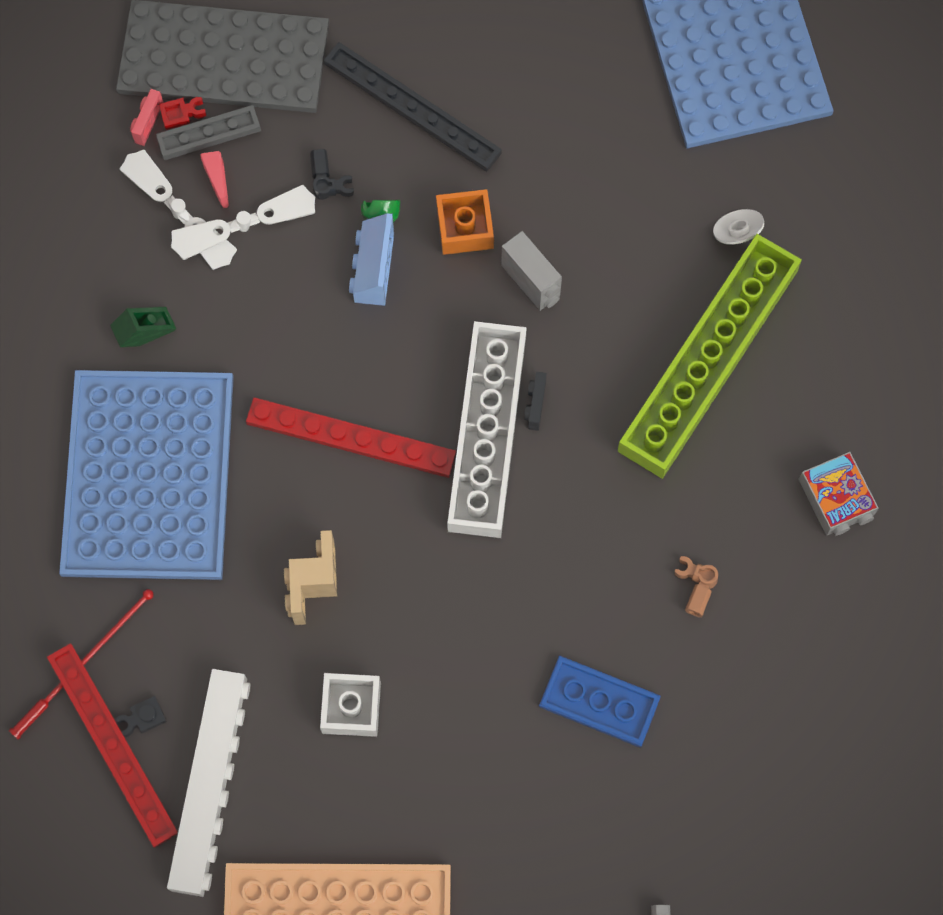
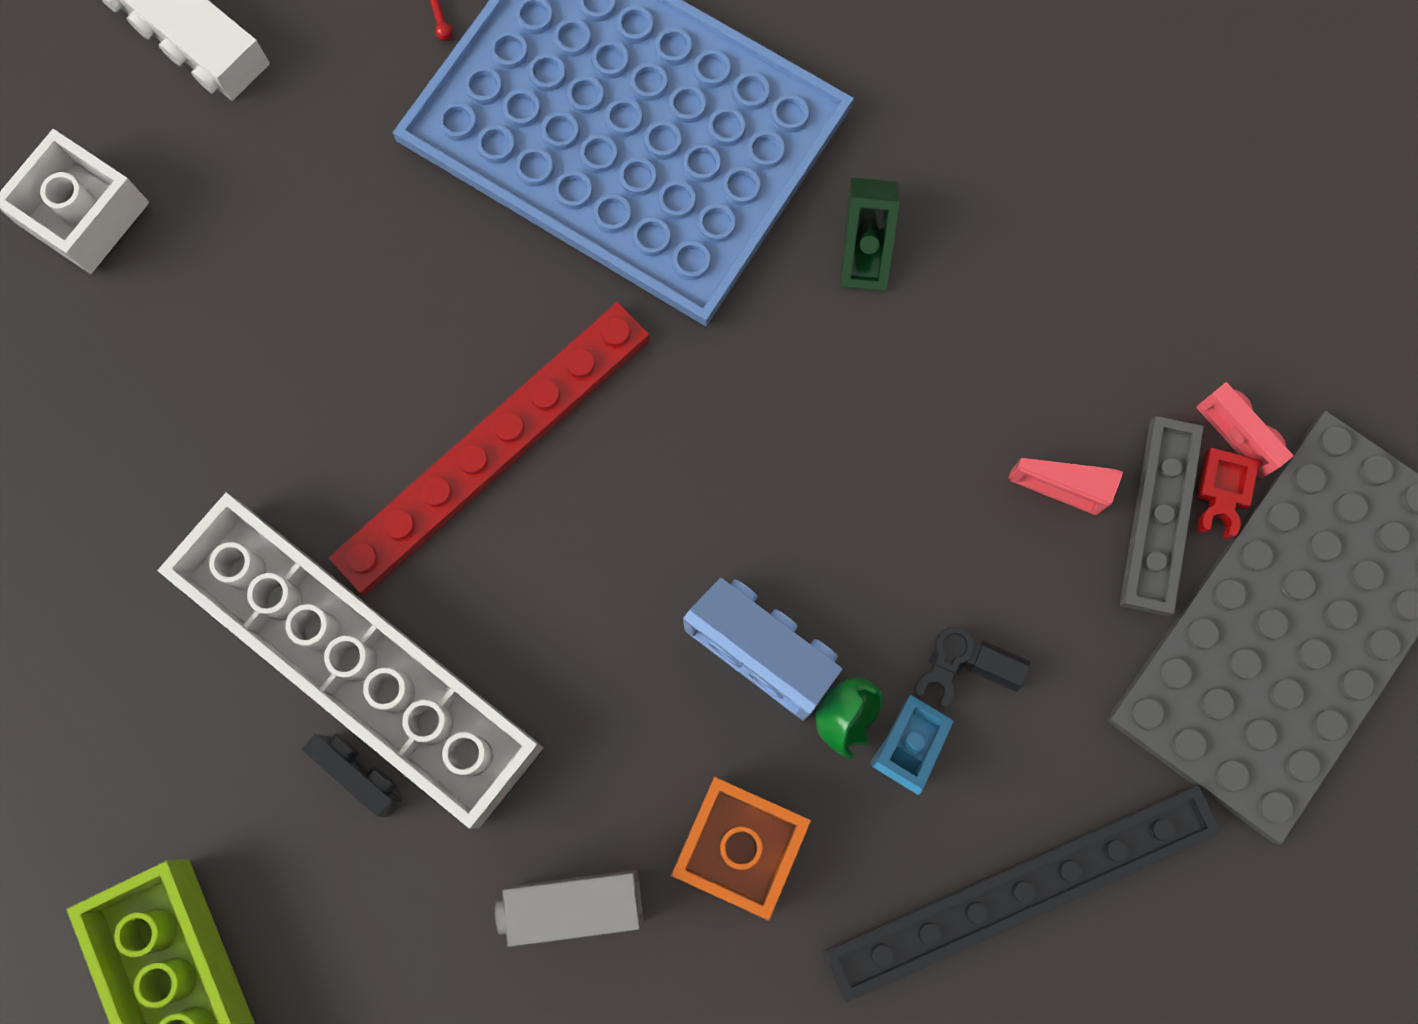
camera: 120 degrees right, 5 degrees up
(149, 178) = (1126, 372): white piece -> none
(285, 207) = (952, 567): white piece -> none
(311, 578) = (290, 247): tan bracket -> none
(378, 178) = (913, 744): none -> dark azure slope

